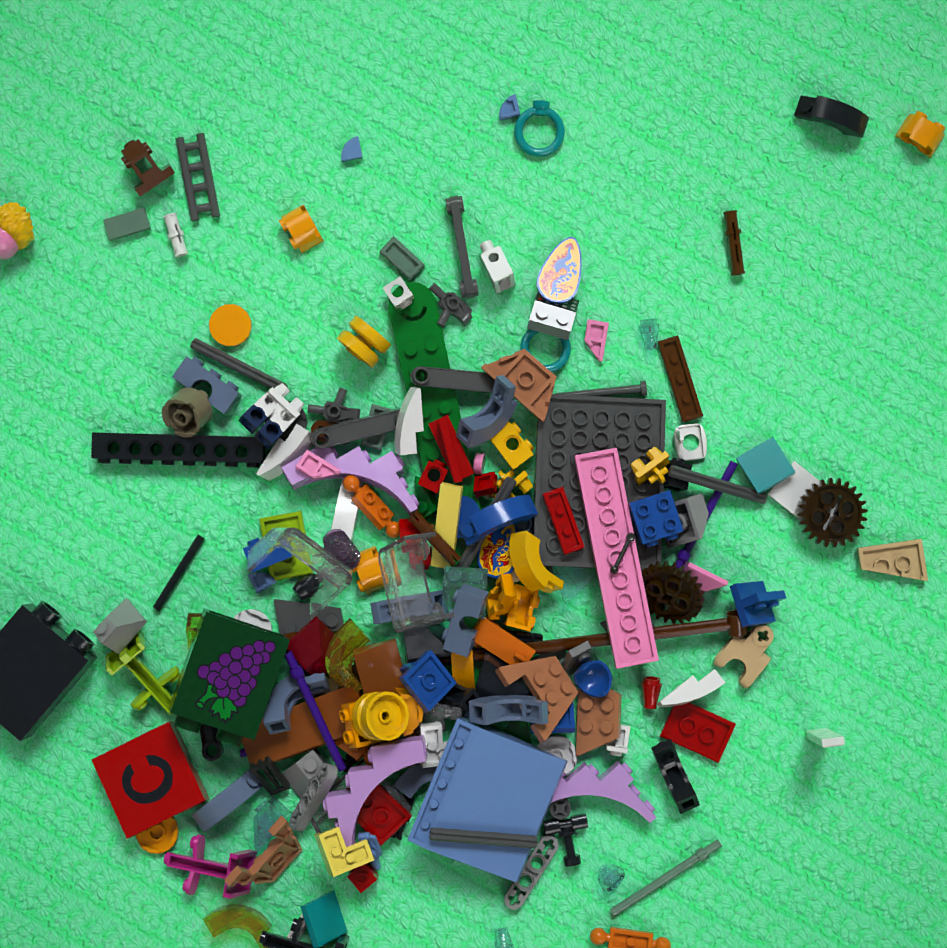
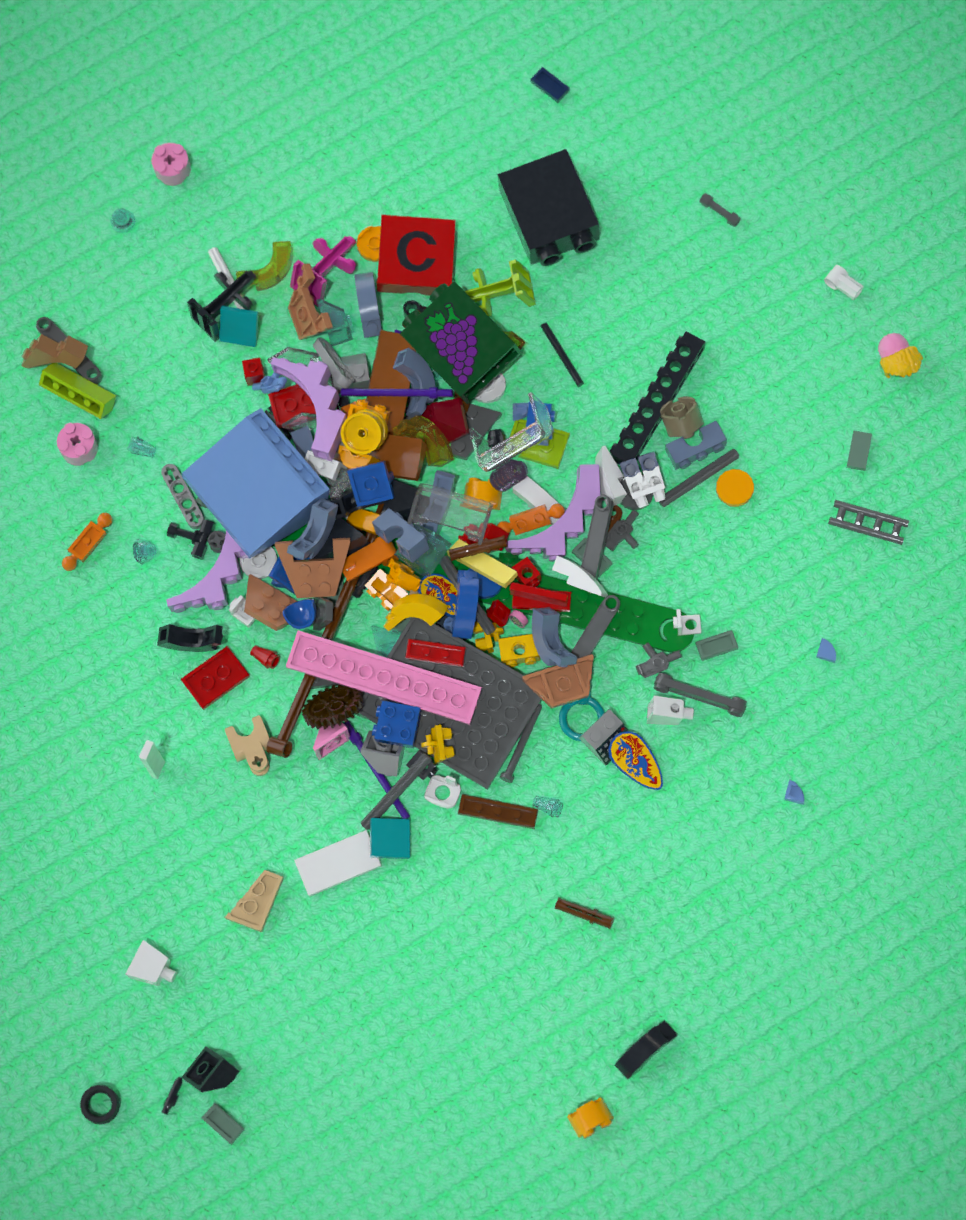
camera: 125 degrees right, 15 degrees down
(120, 626) = (543, 288): light grey slope -> none
(135, 151) = (911, 483): reddish brown tile -> none
(175, 235) = (830, 482): white pin -> none
(264, 765) = (367, 342): pearl dark grey tile -> none
(301, 228) = (783, 578): light orange cylinder -> none
(316, 467) = (584, 488): bright pink tile -> none
(337, 856) = (275, 353): light yellow panel -> none
(362, 343) = (663, 577): yellow wheel -> none
(483, 838) = (229, 462): dark grey axle -> none
(539, 108) = (780, 816): teal piece -> none
(596, 337) = (568, 763): bright pink tile -> none
(630, 537) = (392, 695): pearl dark grey hinge -> none
(692, 690) = (247, 686): white slope -> none
(700, 855) = (118, 628): sand green bar -> none
(755, 603) = (286, 768): blue bracket -> none
(814, 502) = (307, 879): dark brown gear -> none

